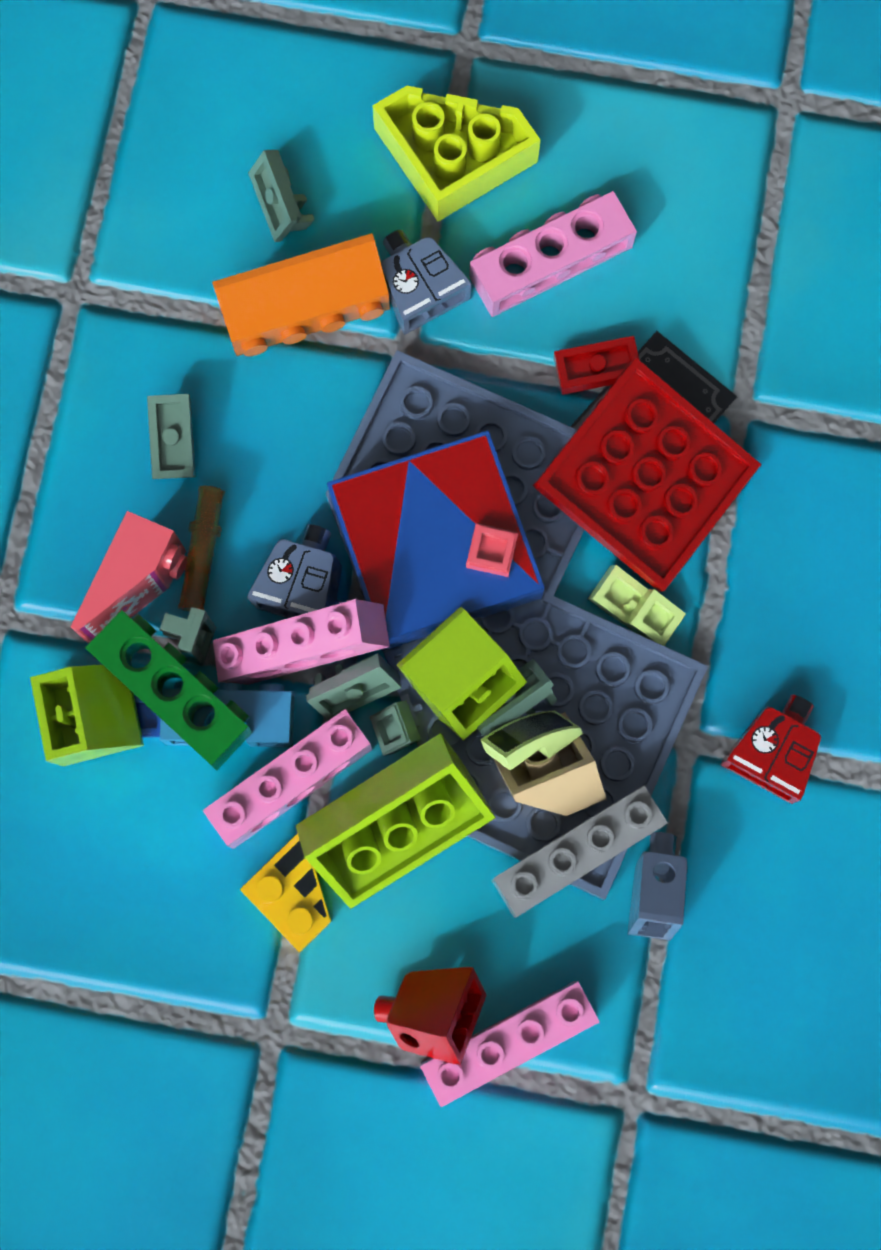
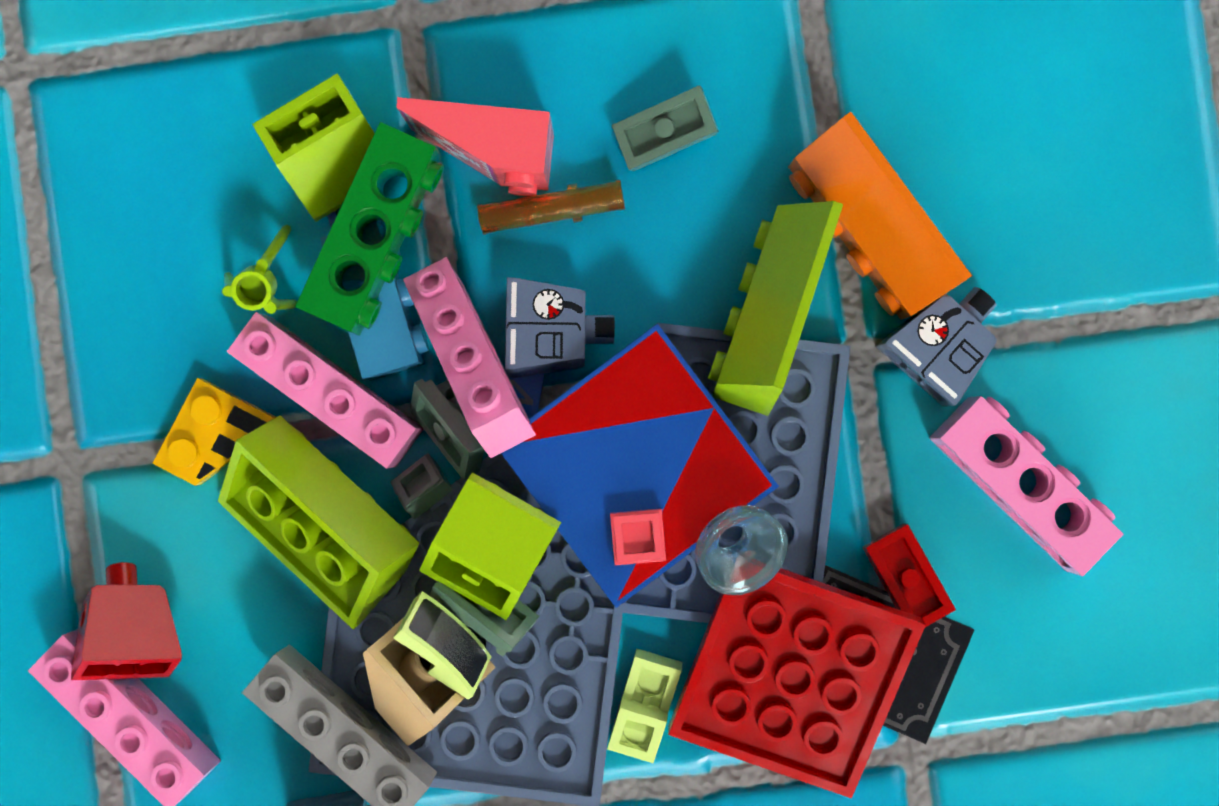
camera: 75 degrees right, 10 degrees up
(179, 800) = (256, 284): none -> lime plant
(193, 634) = (443, 232): sand green plate -> none
(275, 196) = (990, 145): sand green plate -> none
(344, 391) = (775, 305): none -> lime slope
(454, 145) = (1120, 330): neon yellow brick -> none
(535, 463) = (749, 561): none -> clear light blue piece

